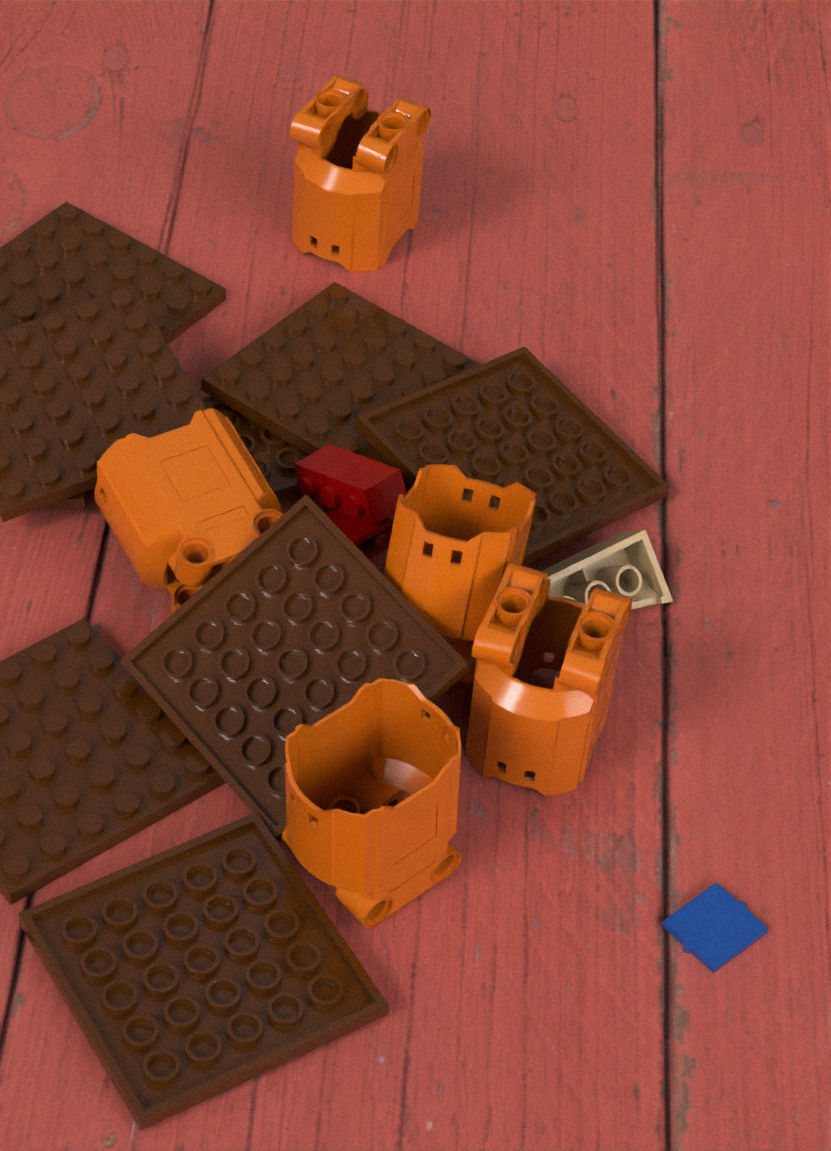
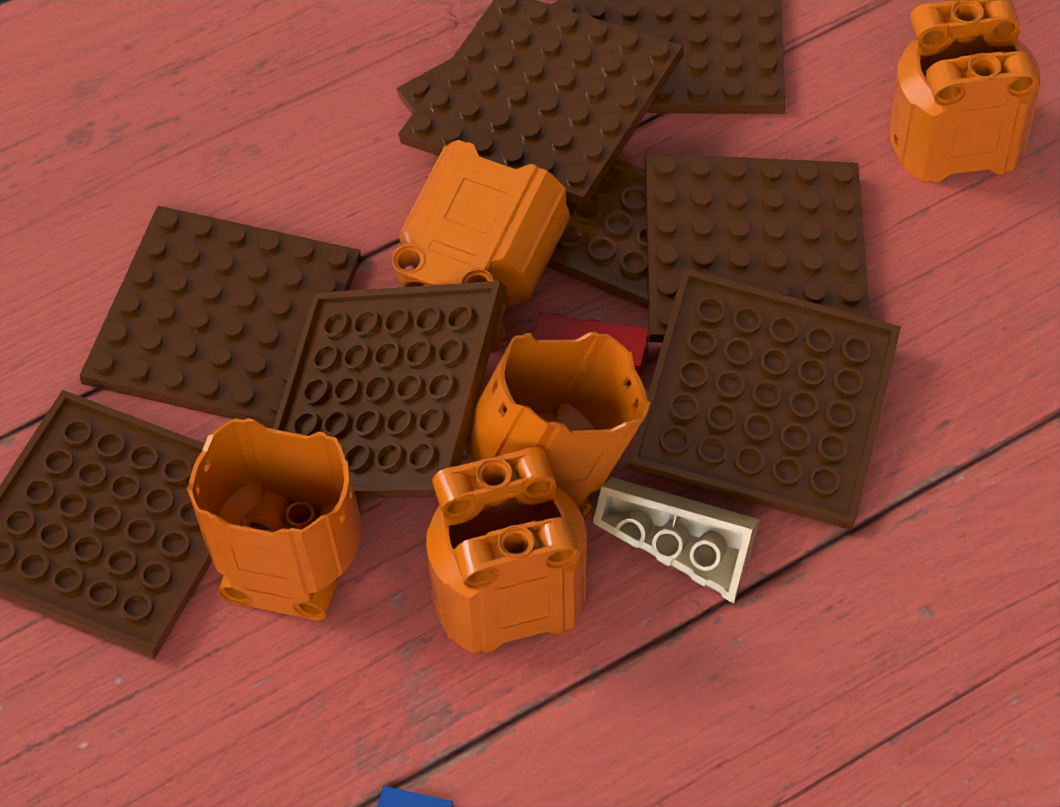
camera: 60 degrees right, 10 degrees up
(350, 483) = (614, 304): red brick -> none

